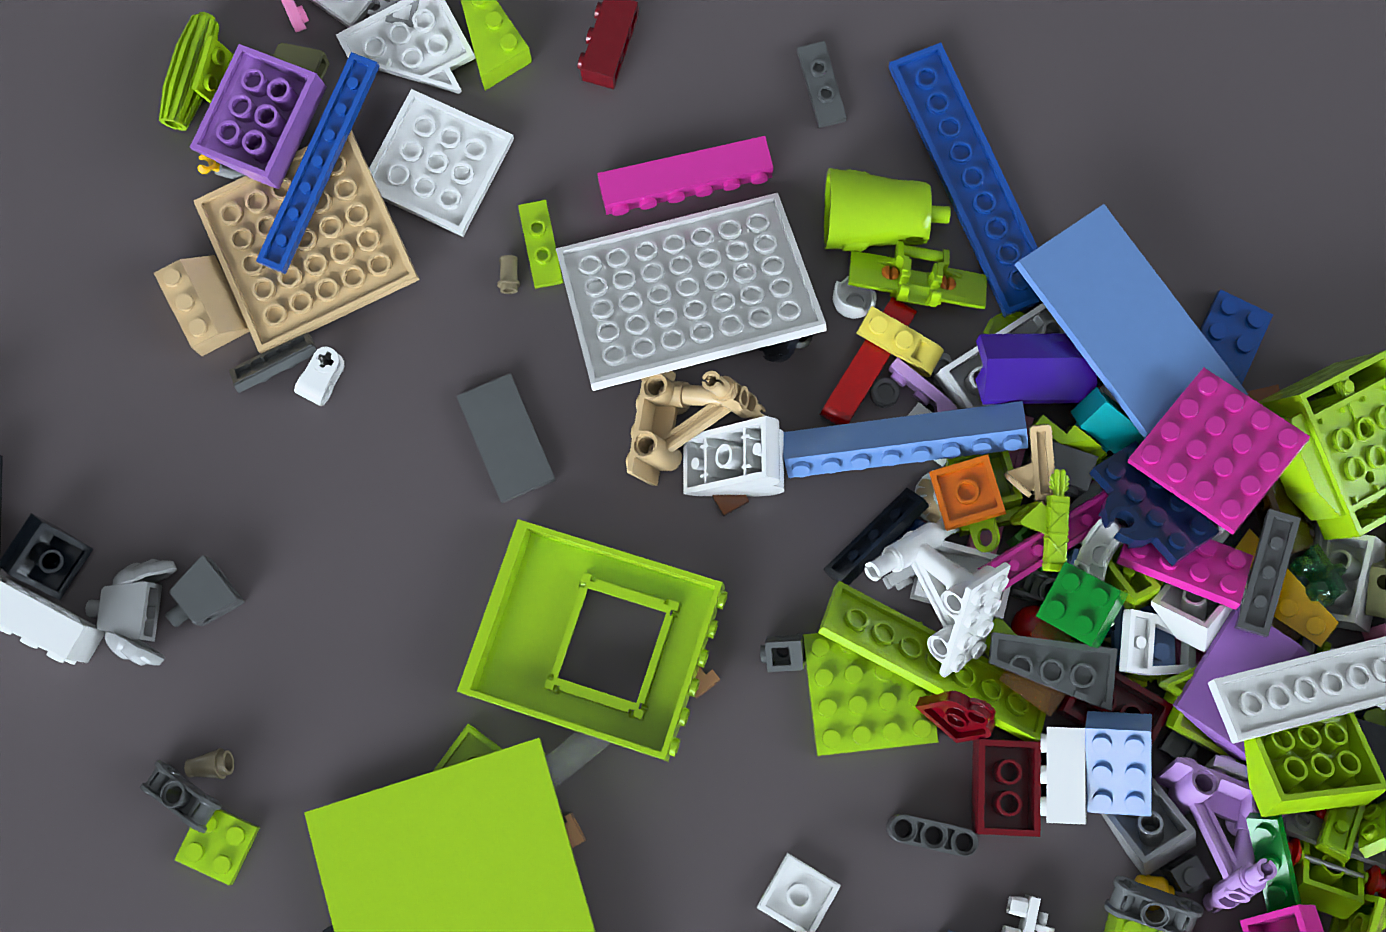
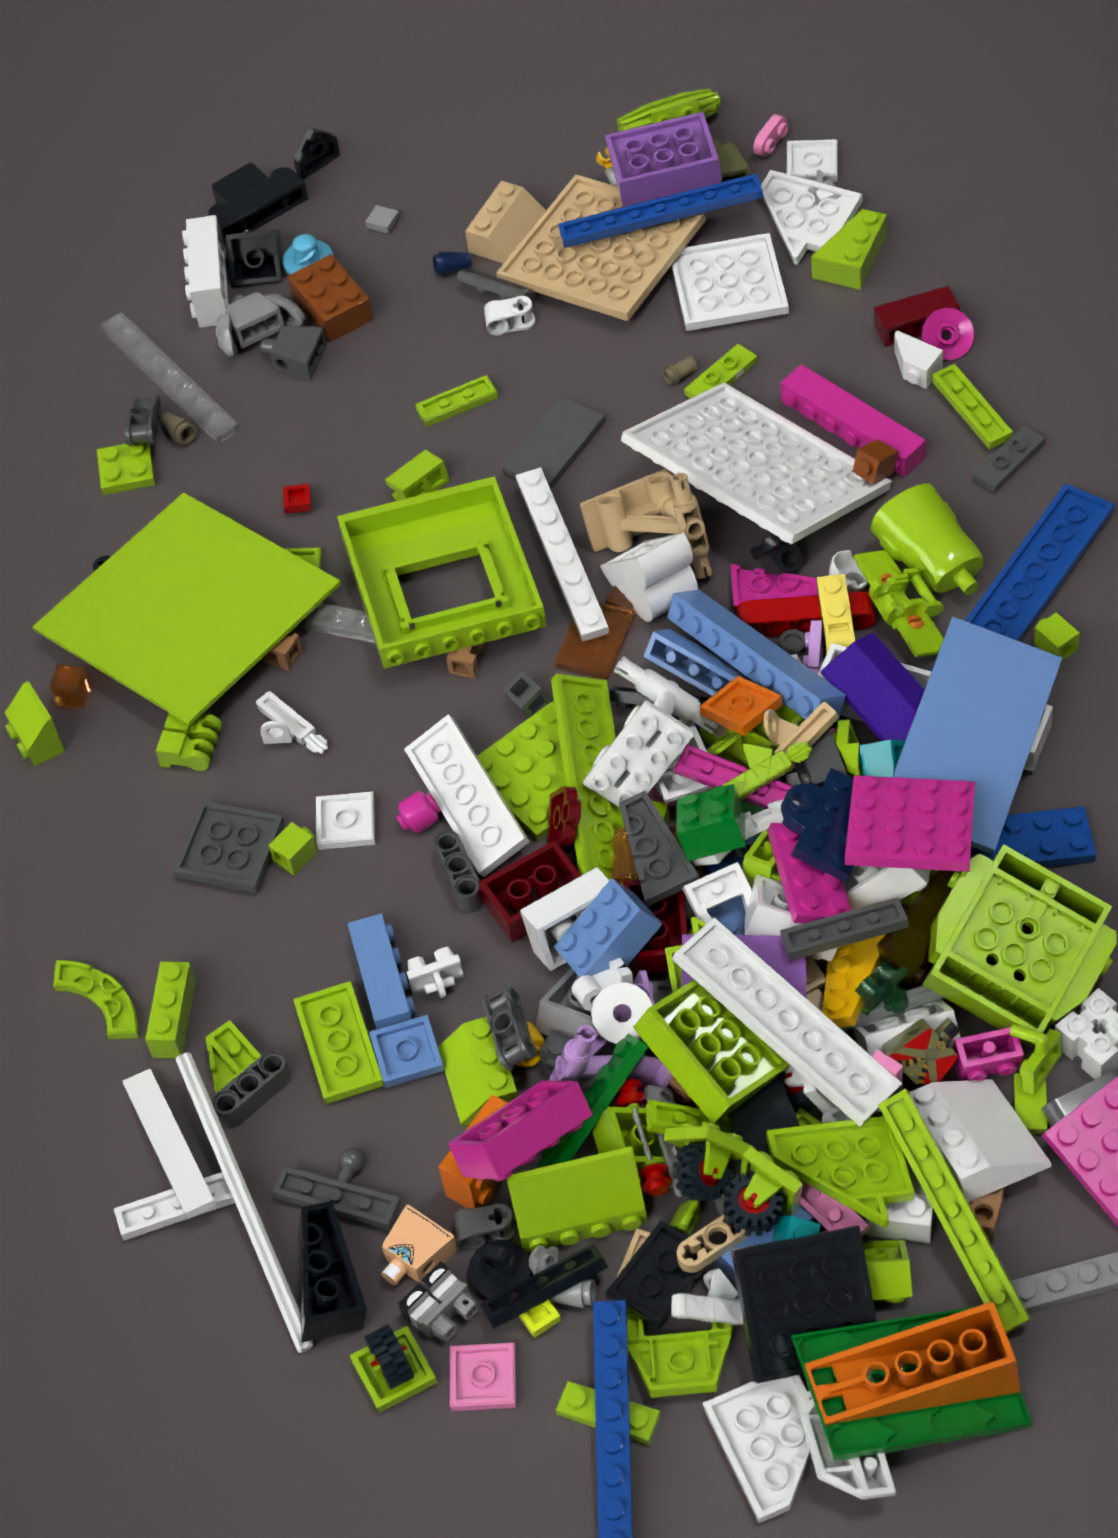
camera: 65 degrees right, 25 degrees down
(89, 508) = (304, 252): none -> medium azure plate
(94, 406) = (382, 219): none -> light grey tile
(131, 732) = (170, 377): none -> clear plate
(162, 521) = (330, 297): none -> dark orange brick
(207, 383) = (451, 262): none -> dark blue cone
(383, 488) = (456, 401): none -> lime tile
(391, 708) = (297, 498): none -> red plate
(455, 585) = (418, 476): none -> lime hinge
(646, 518) = (562, 555): none -> white plate
(656, 881) = (287, 725): none -> white piece
(658, 77) = (917, 359): none -> white slope
(660, 28) = (958, 327): none -> dark pink dish
(744, 71) = (972, 406): none -> lime plate
(756, 550) = (597, 655): none -> clear orange tile
(757, 192) = (875, 461): none -> dark orange brick
(818, 373) = (761, 585): none -> dark pink wing
(843, 829) = (418, 812): none -> dark pink head
(858, 777) = (466, 795): none -> white plate
(866, 491) = (690, 661): none -> medium blue brick
(1042, 187) = (1056, 636): none -> lime brick
(1166, 800) = (588, 987): none -> white leg
(1234, 812) = (609, 1000): none -> white tile

